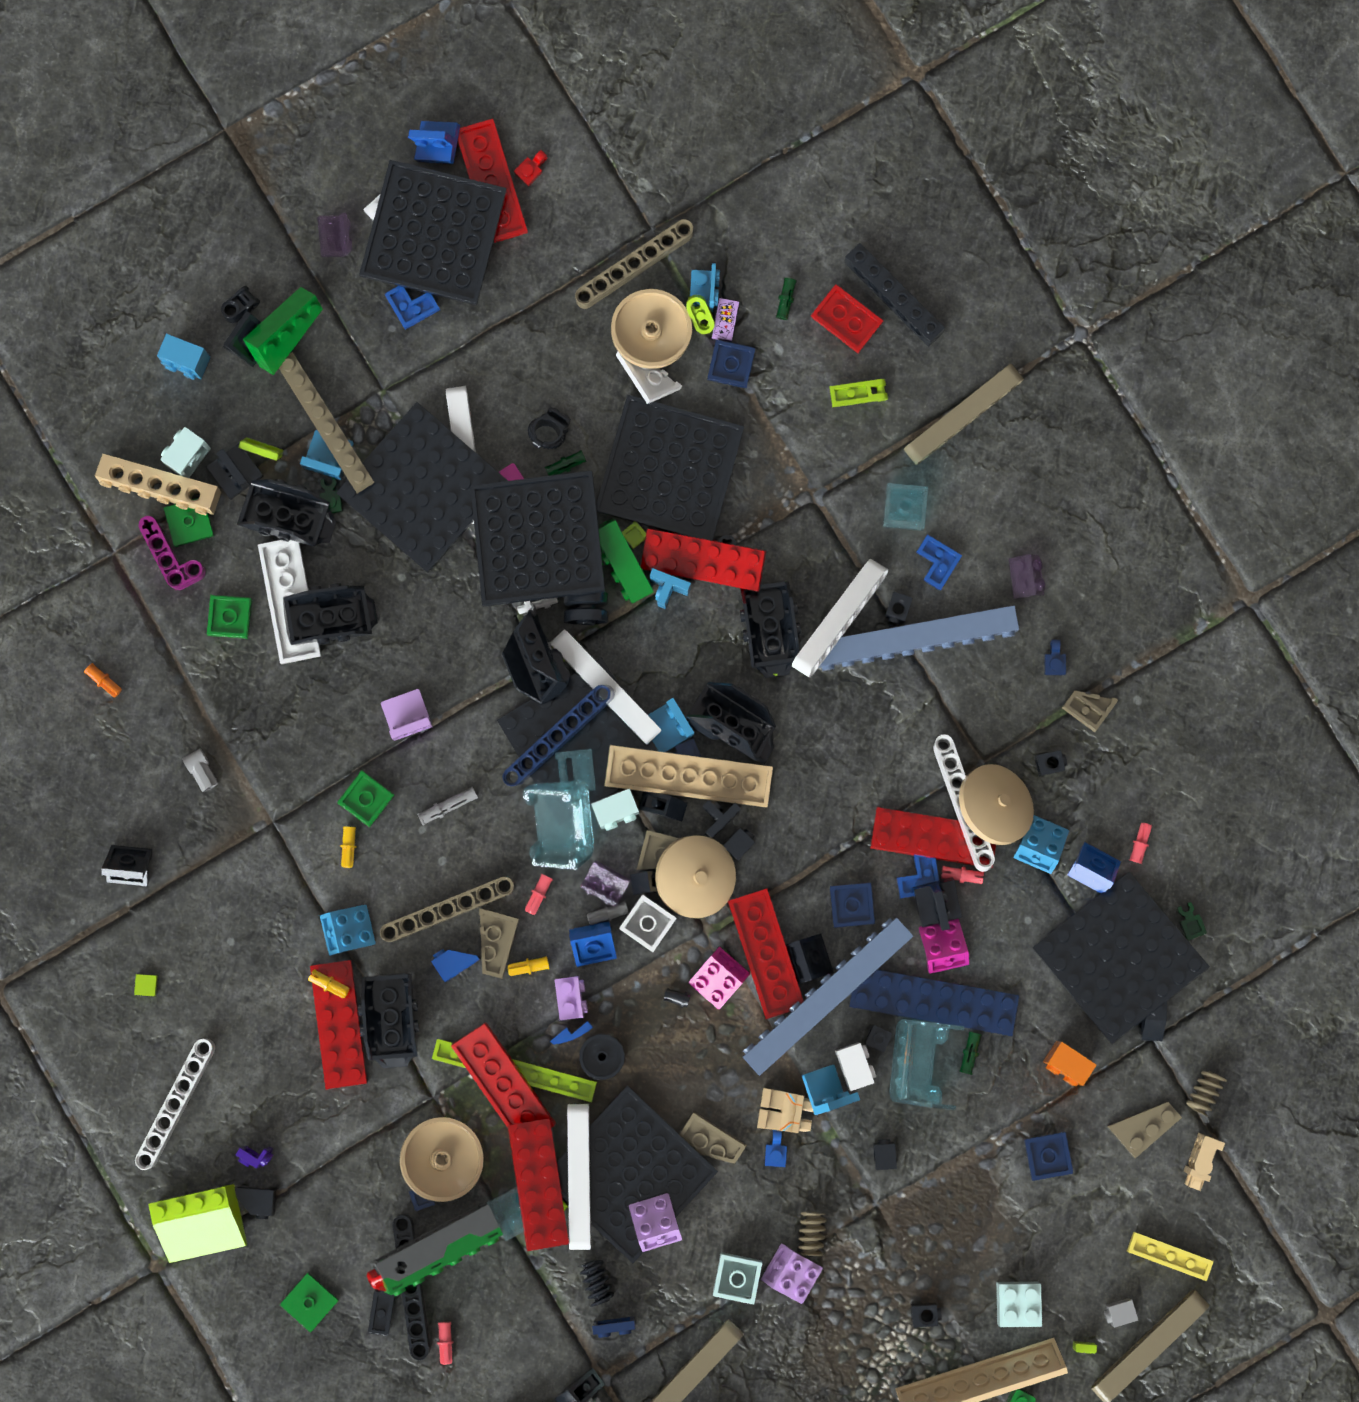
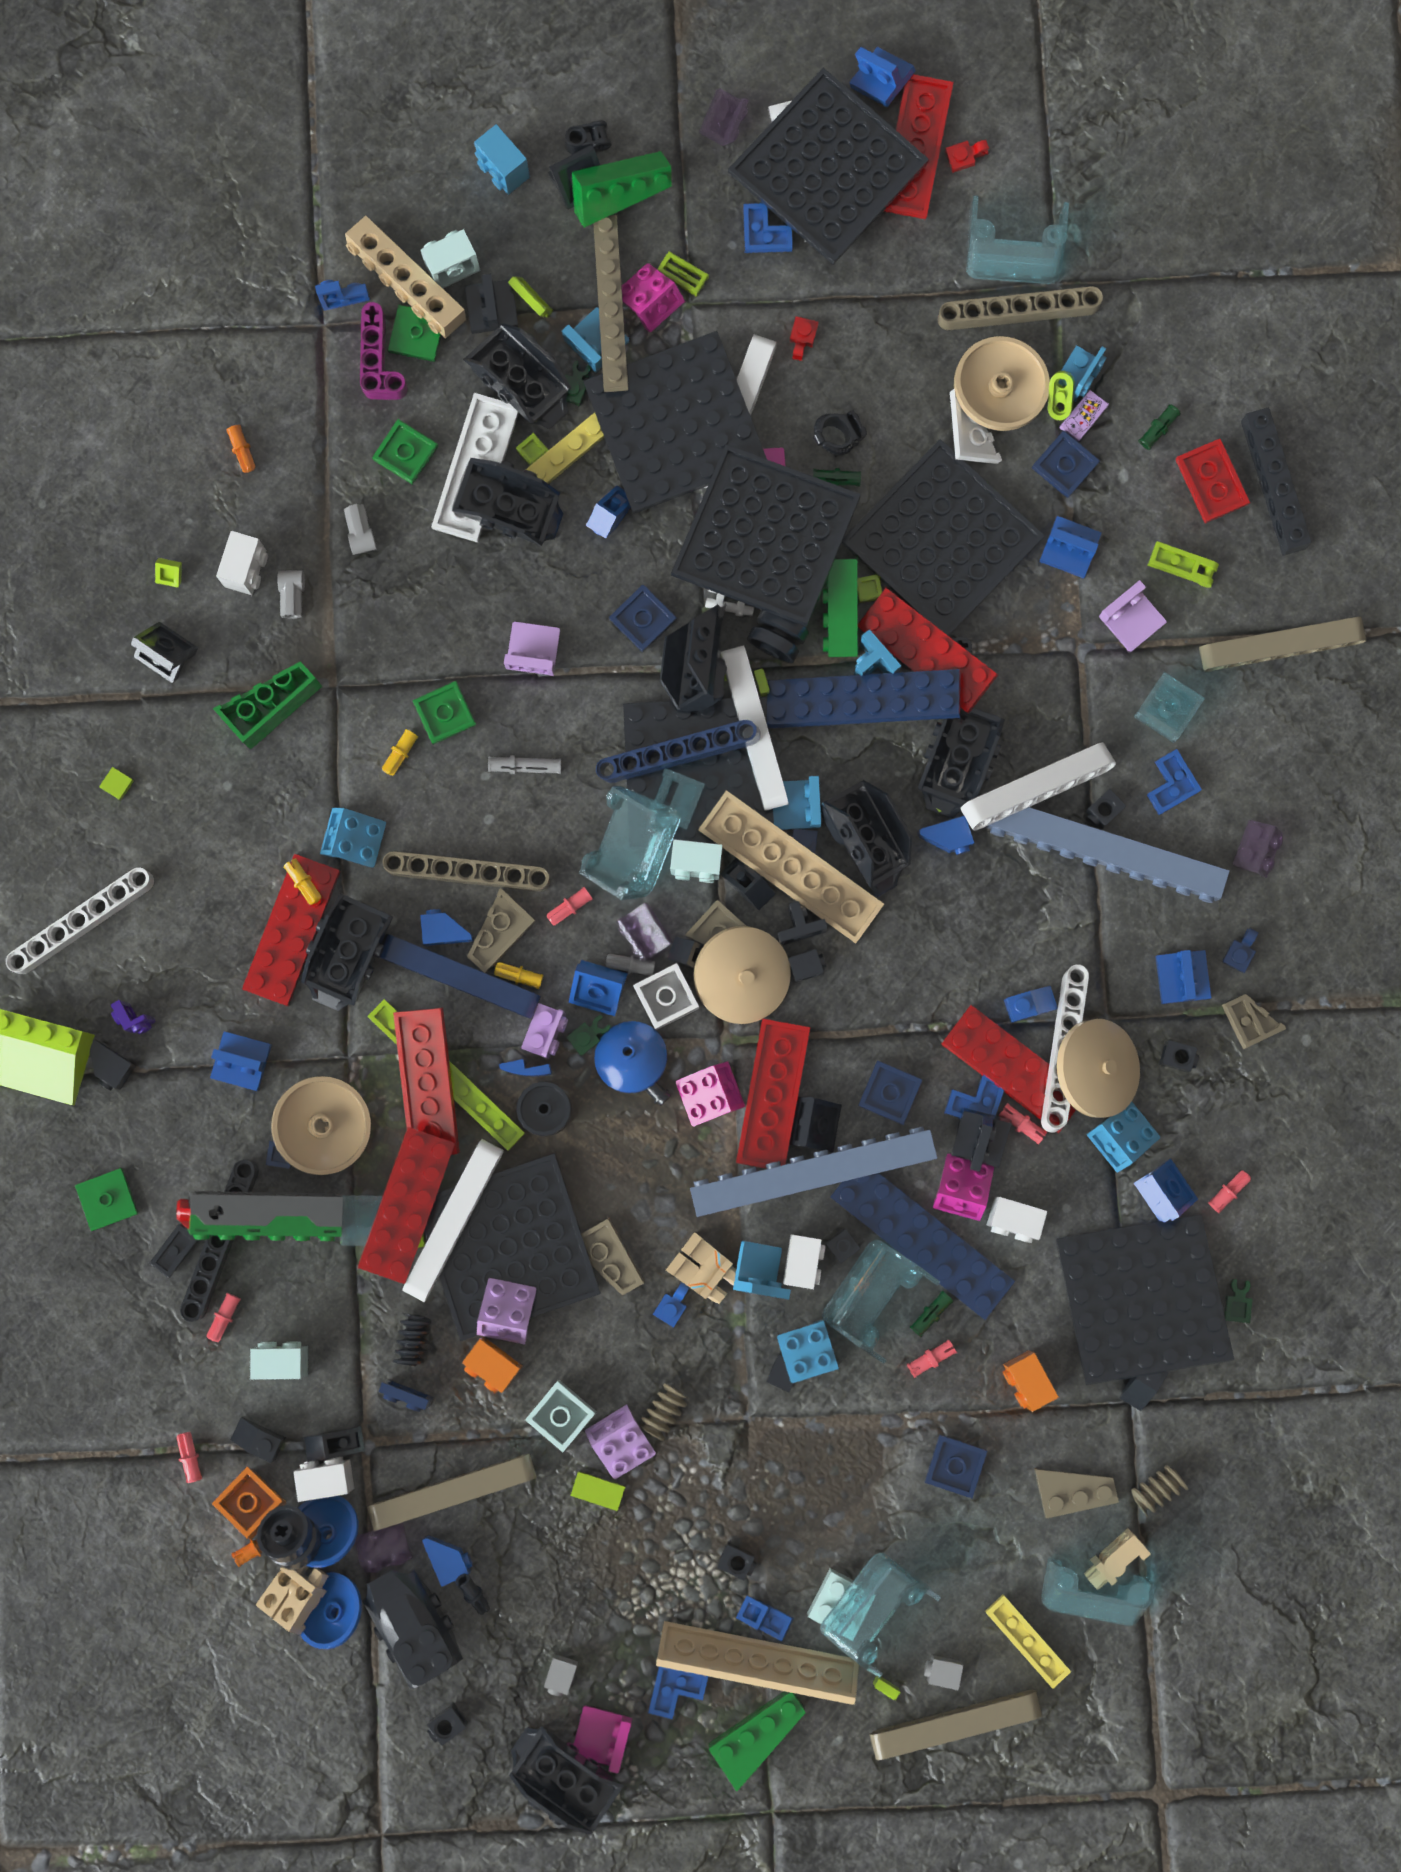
camera: 30 degrees right, 0 degrees up
(98, 804) = (168, 572): none -> lime plate
(111, 527) = (333, 296): none -> blue plate
(152, 767) = (242, 563): none -> white brick
(229, 698) = (360, 535): none -> light grey piece
(229, 864) = (268, 704): none -> green wedge
(324, 564) = (531, 449): none -> lime tile
(351, 400) = (651, 296): none -> dark pink bracket
(351, 551) = (568, 450): none -> light yellow plate
(353, 1143) = (240, 1061): none -> blue bracket
(383, 371) = (684, 285): none -> lime tile
(409, 581) = (609, 512): none -> blue slope
(477, 648) = (642, 618): none -> dark blue plate
(481, 369) = (803, 335): none -> red plate
(485, 991) = (459, 976): none -> dark blue beam
(505, 1353) = (279, 1362): none -> light aqua brick
(592, 649) = (761, 682): none -> lime tile
(603, 986) = (585, 1037): none -> dark green plate
(612, 229) = (1015, 259): none -> clear light blue windscreen
(658, 984) = (634, 1071): none -> blue dish
(666, 1269) = (491, 1365): none -> orange brick
(675, 621) = (863, 698): none -> dark blue plate
(768, 424) = (1070, 547): none -> blue bracket
(794, 689) = (949, 835): none -> blue slope
(794, 1319) = (597, 1491): none -> lime tile
(842, 453) = (1132, 617): none -> lavender bracket
(894, 1131) = (807, 1351): none -> dark azure bracket
(920, 783) = (1030, 1004): none -> blue slope
(968, 1345) = (764, 1618): none -> blue slope
(988, 1086) = (931, 1358): none -> coral pin
(995, 948) = (1016, 1218): none -> white brick
(1022, 702) = (1183, 977): none -> blue bracket
(1040, 1294) = (869, 1606): none -> clear light blue windscreen
(1178, 1209) = (1062, 1595): none -> clear light blue windscreen

